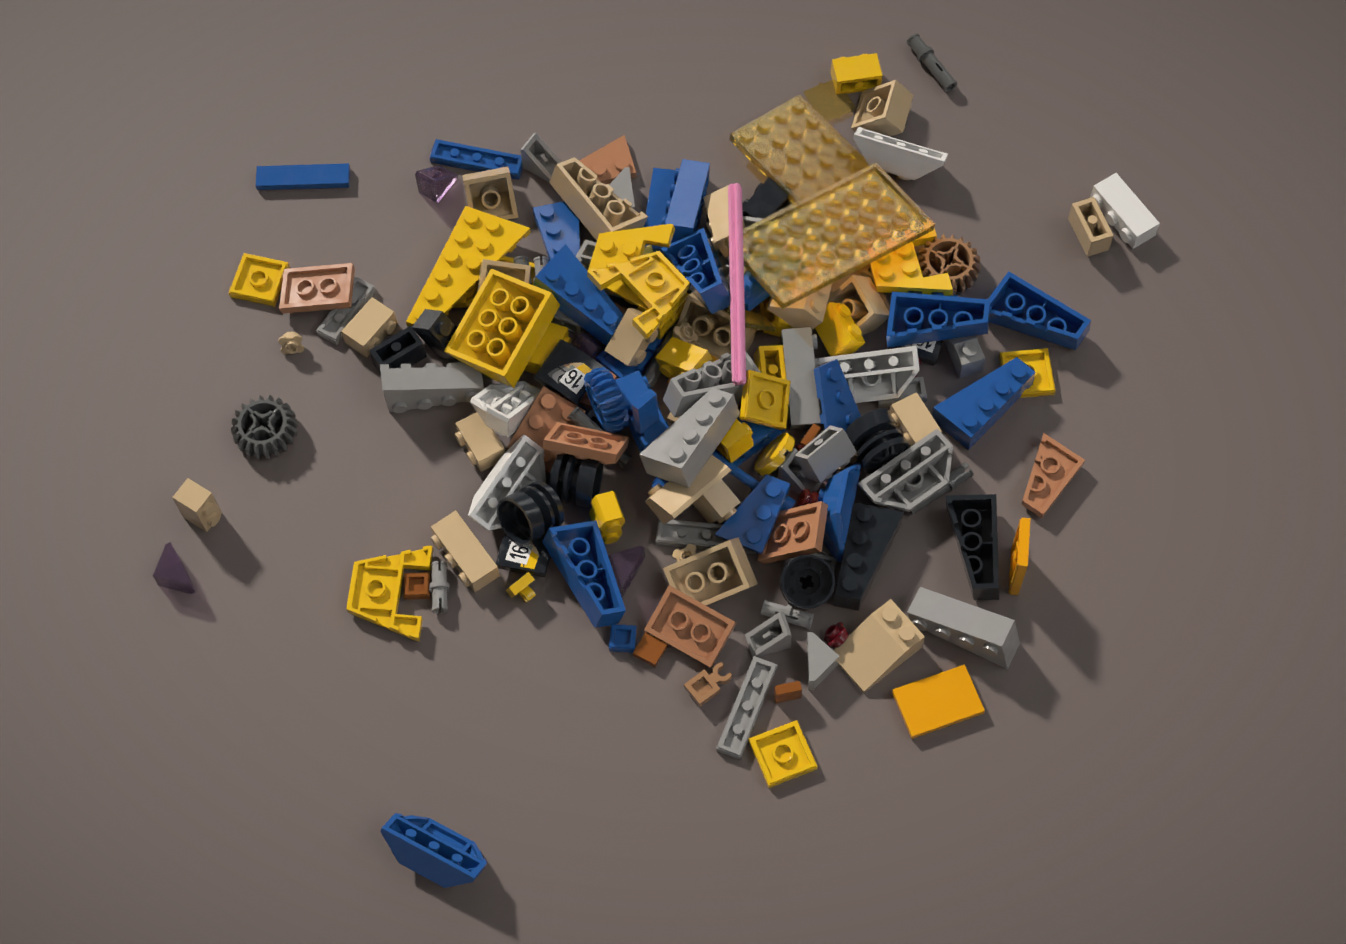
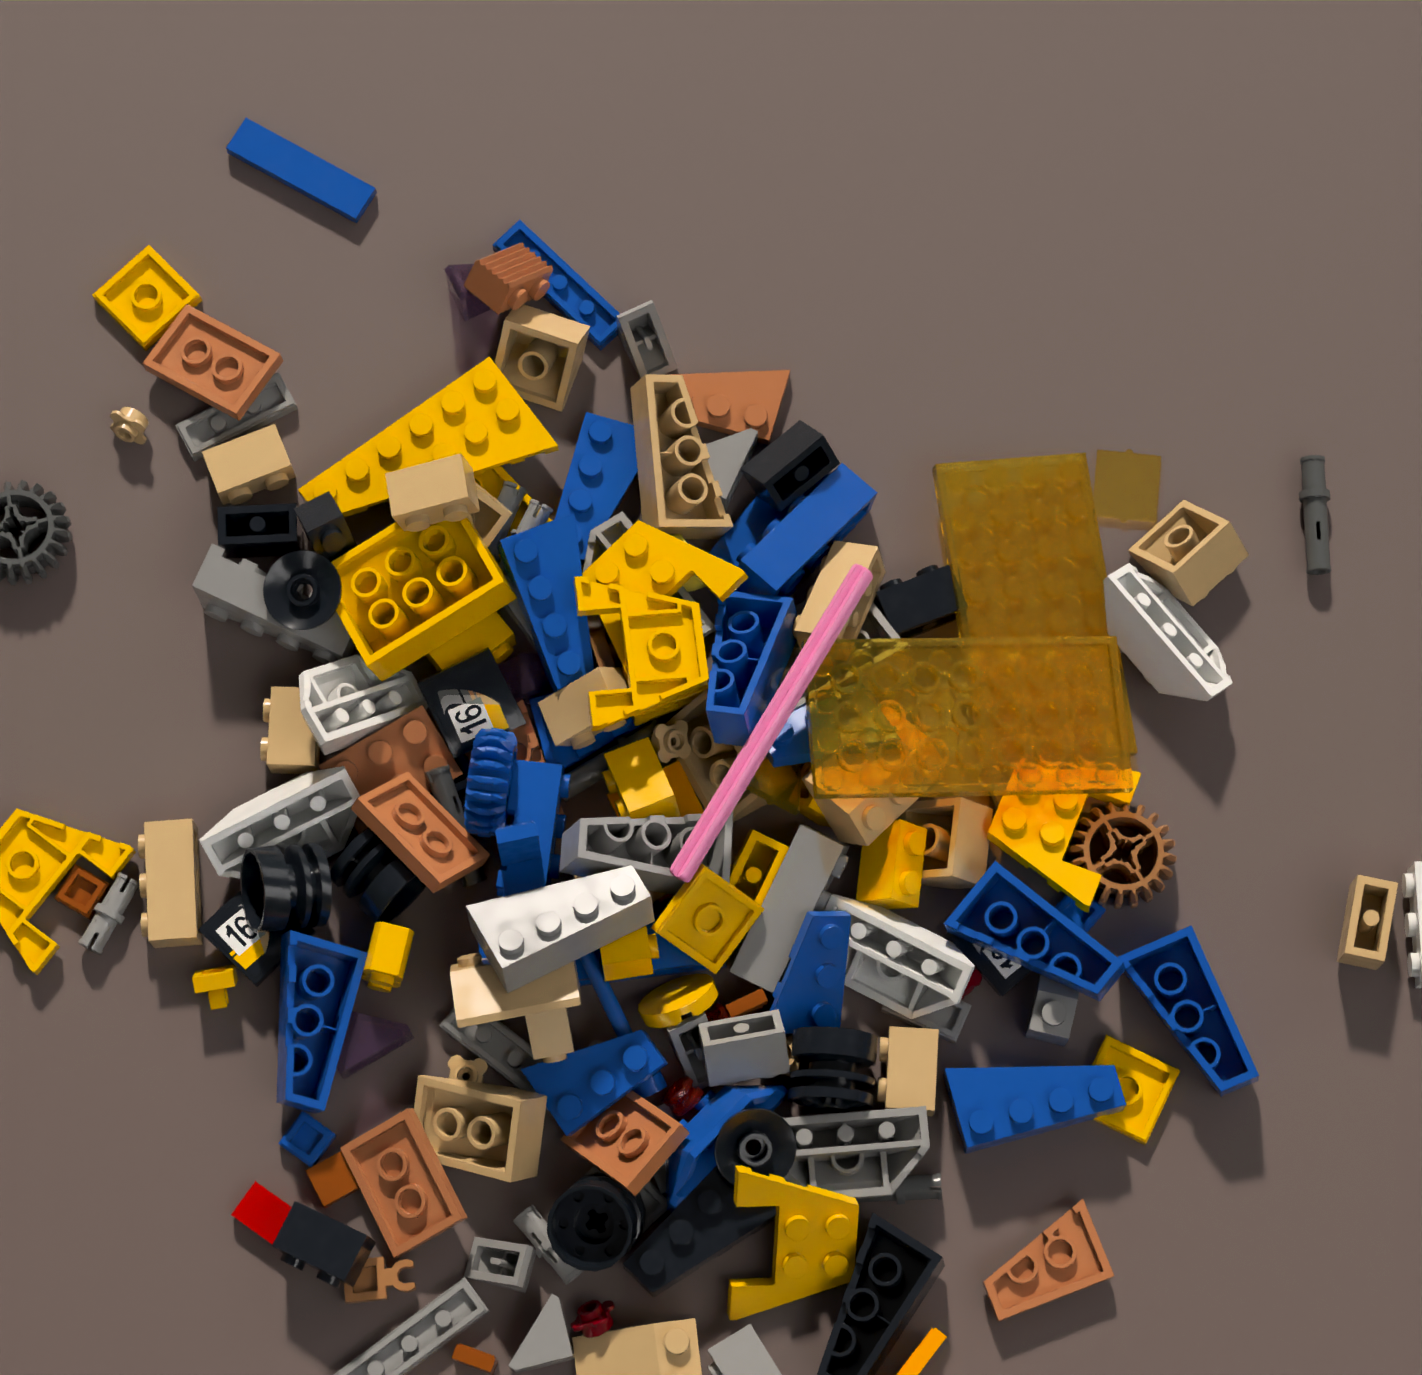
camera: 30 degrees right, 10 degrees up
(439, 350) = (284, 587): none -> black dish
(451, 163) = (509, 278): none -> nougat brick
(485, 272) = (432, 493): none -> tan brick
(634, 688) = (262, 1212): none -> red tile
(657, 172) = (790, 465): none -> black brick
(670, 678) = (323, 1244): none -> black brick
(856, 73) = (1189, 468): yellow brick -> none
(875, 491) = (775, 1148): none -> black dish
(923, 531) = (811, 1242): none -> yellow wing

